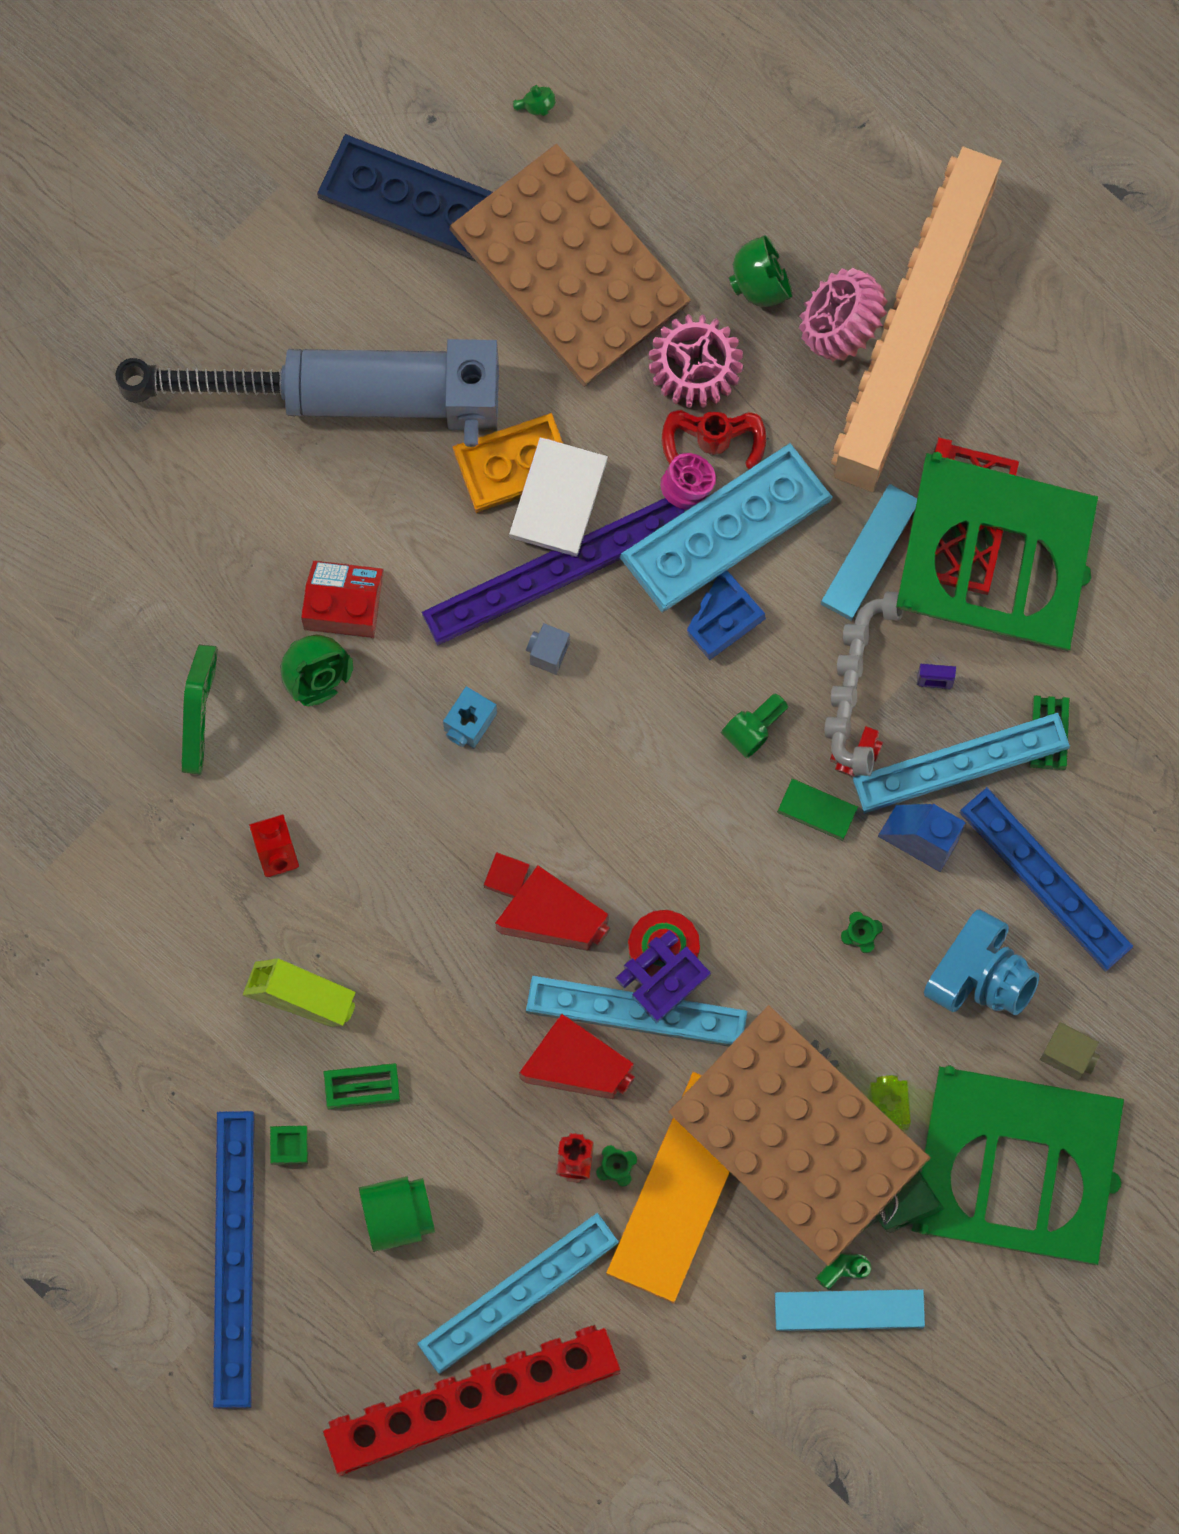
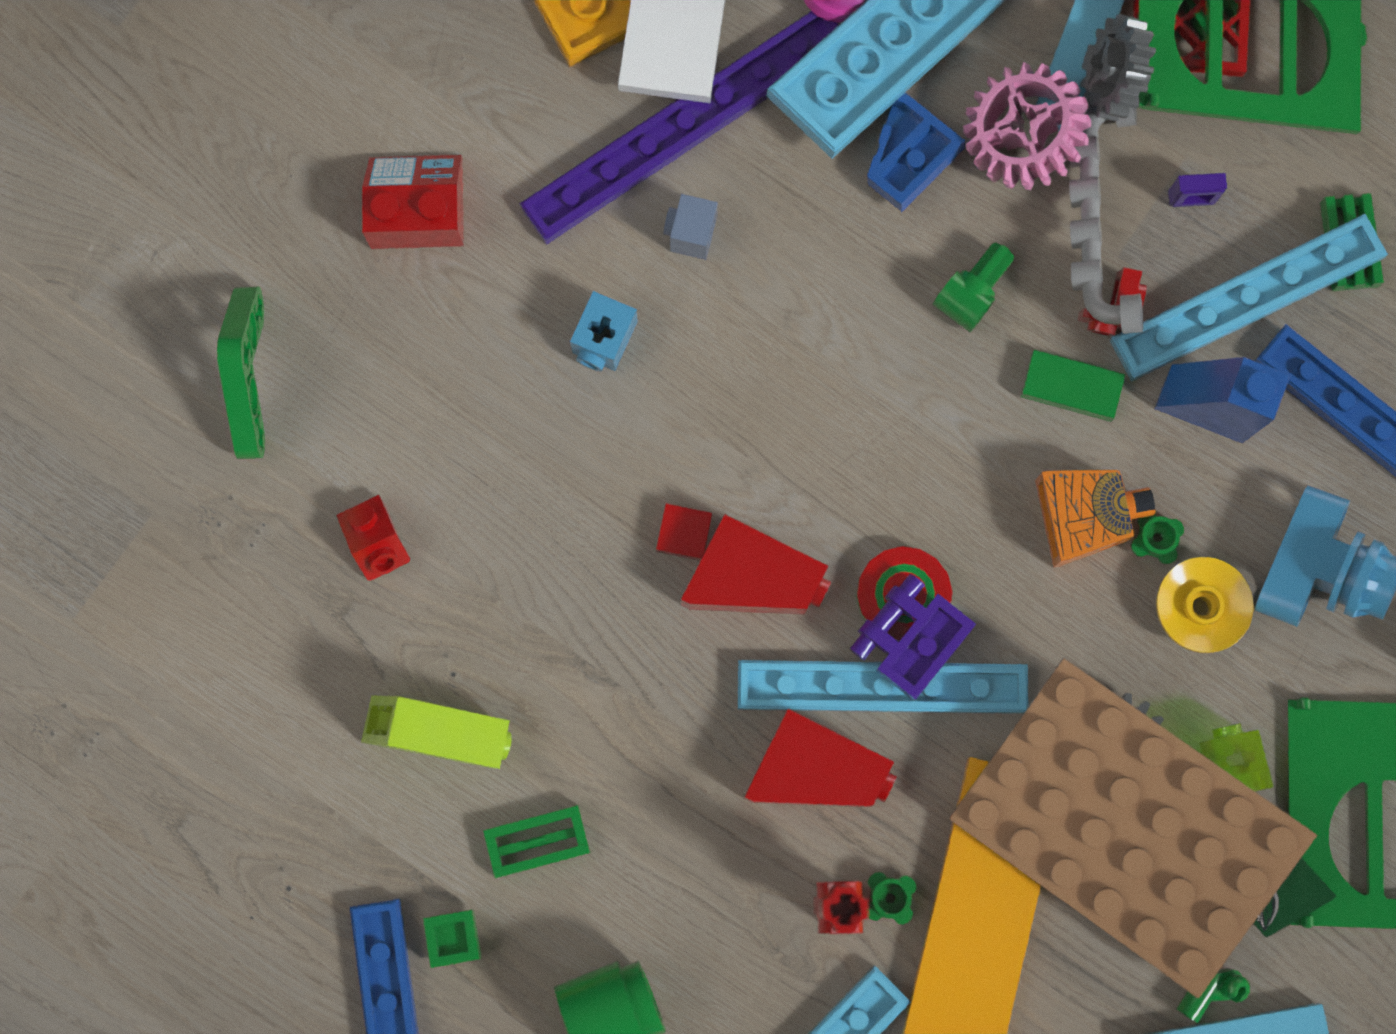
camera: 10 degrees left, 5 degrees up
(314, 668) = (390, 297): green cylinder -> none
(812, 905) = (1088, 511): none -> orange torso
(837, 608) = (1043, 119): none -> bright pink gear
(884, 576) = (1117, 67): none -> dark grey gear
(889, 968) = (1227, 600): none -> yellow dish

